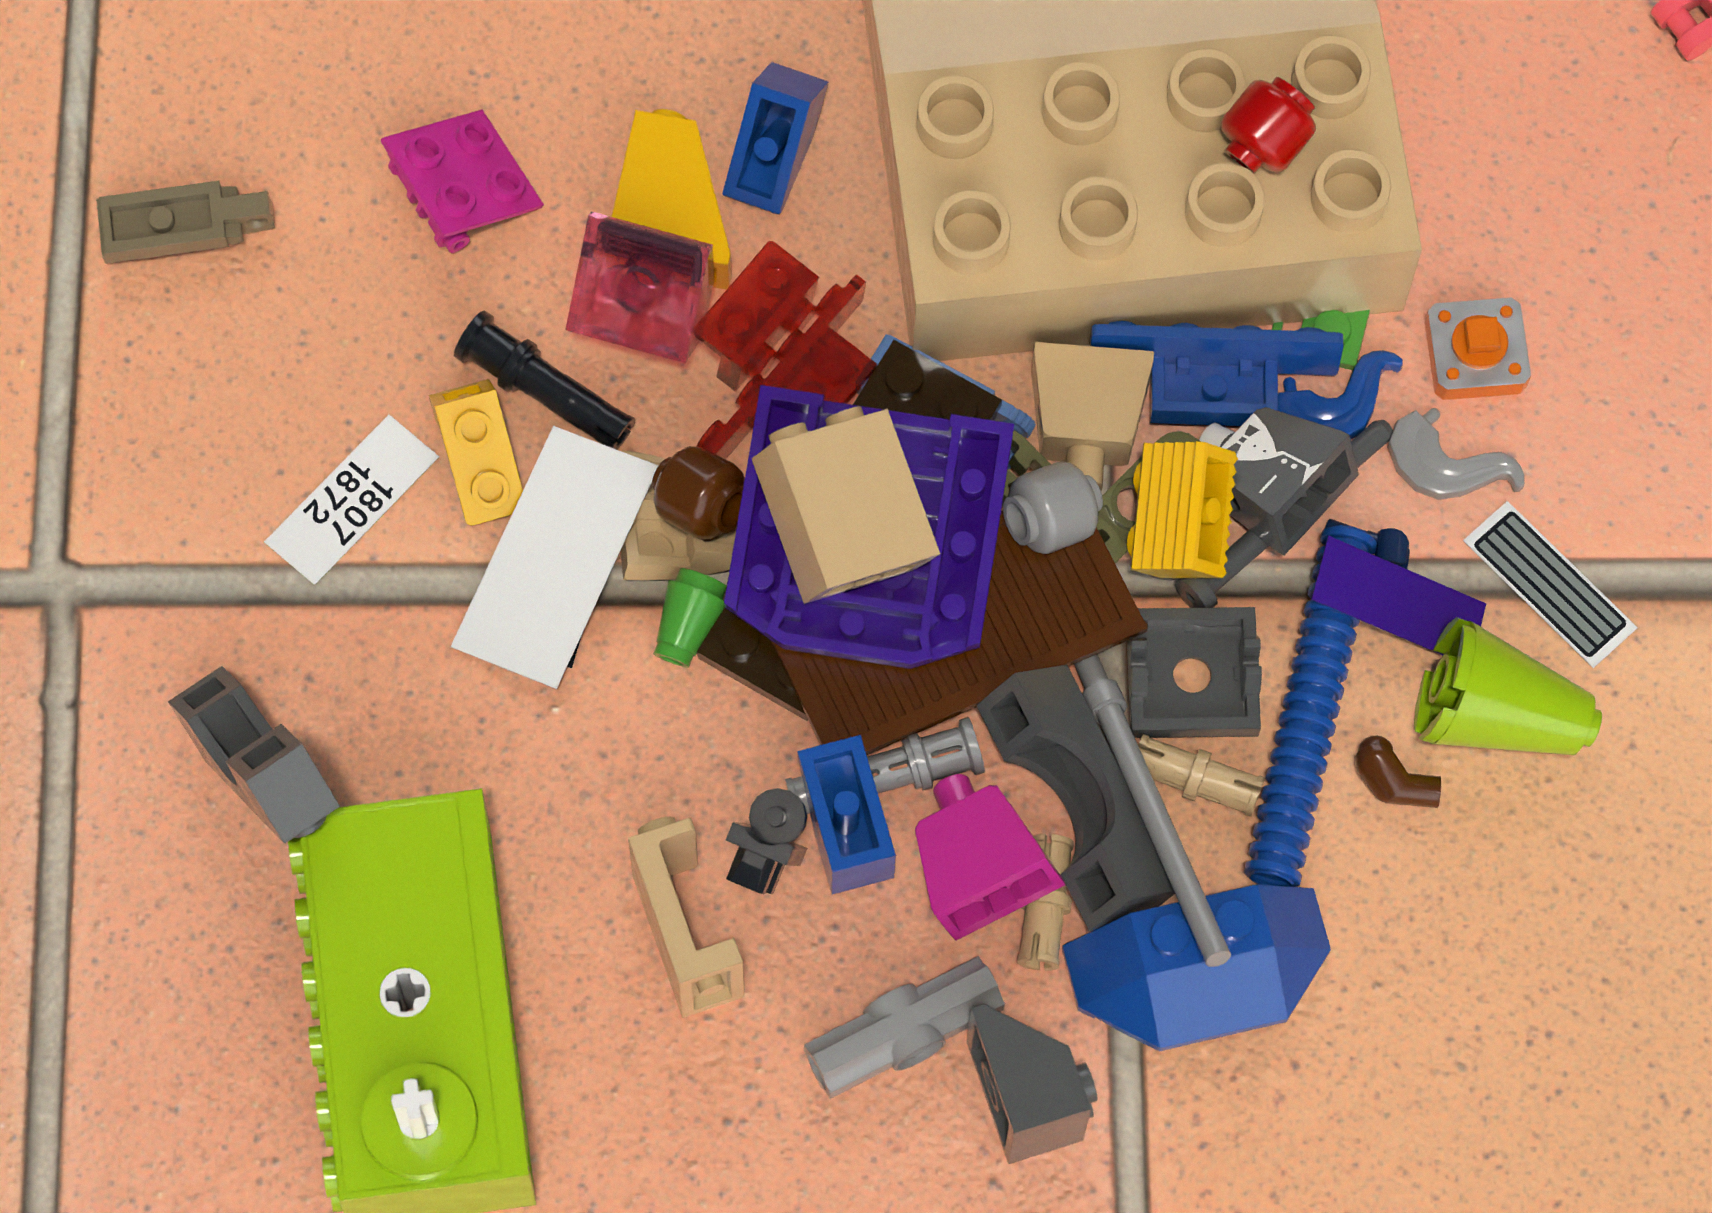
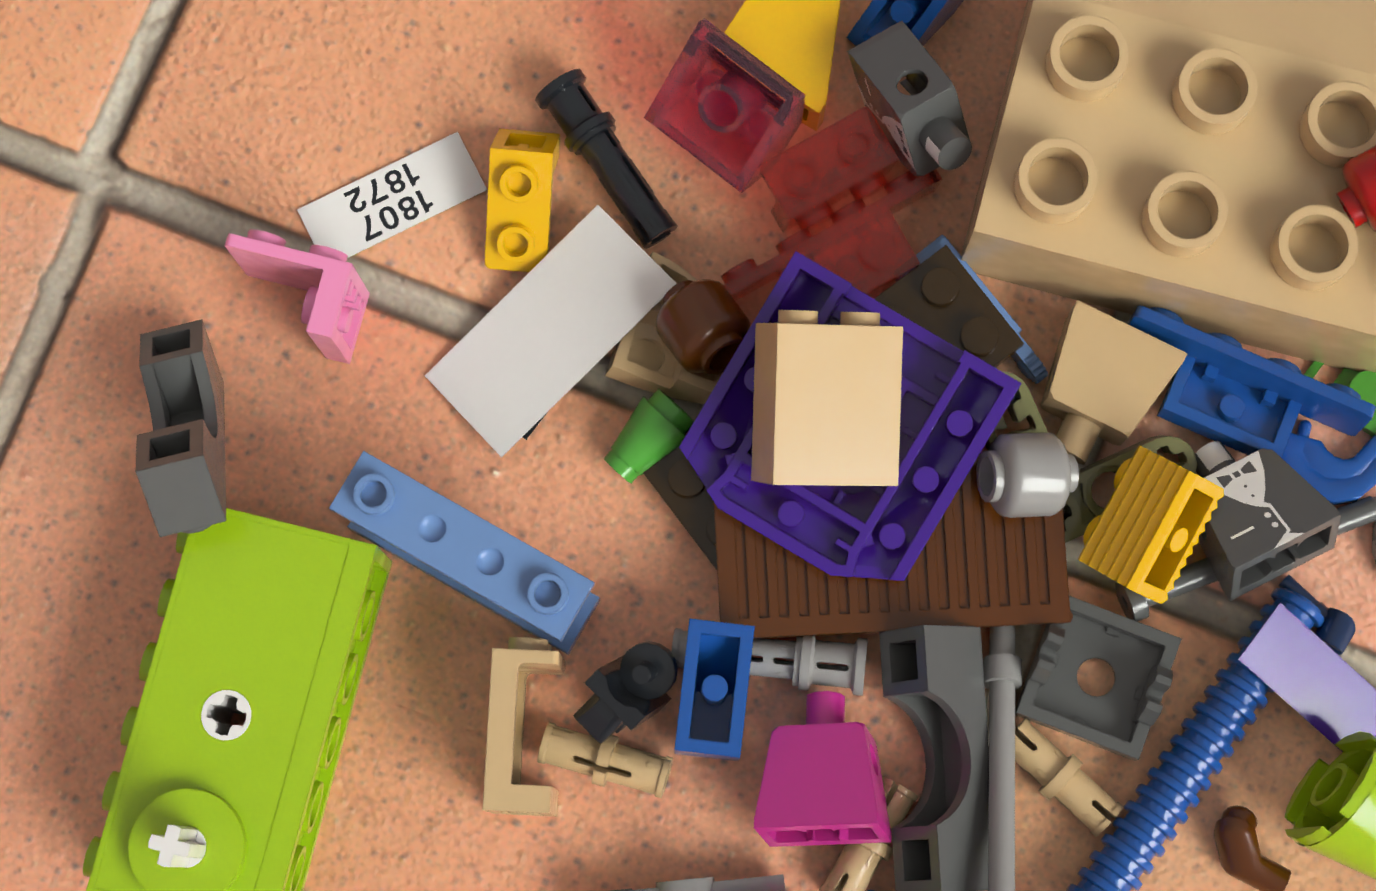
camera: 25 degrees right, 10 degrees up
(318, 580) = (333, 286): none -> bright pink bracket
(566, 771) = (466, 552): none -> medium blue fence
(813, 915) = (605, 761): none -> tan pin
(821, 231) = (923, 126): none -> dark grey torso

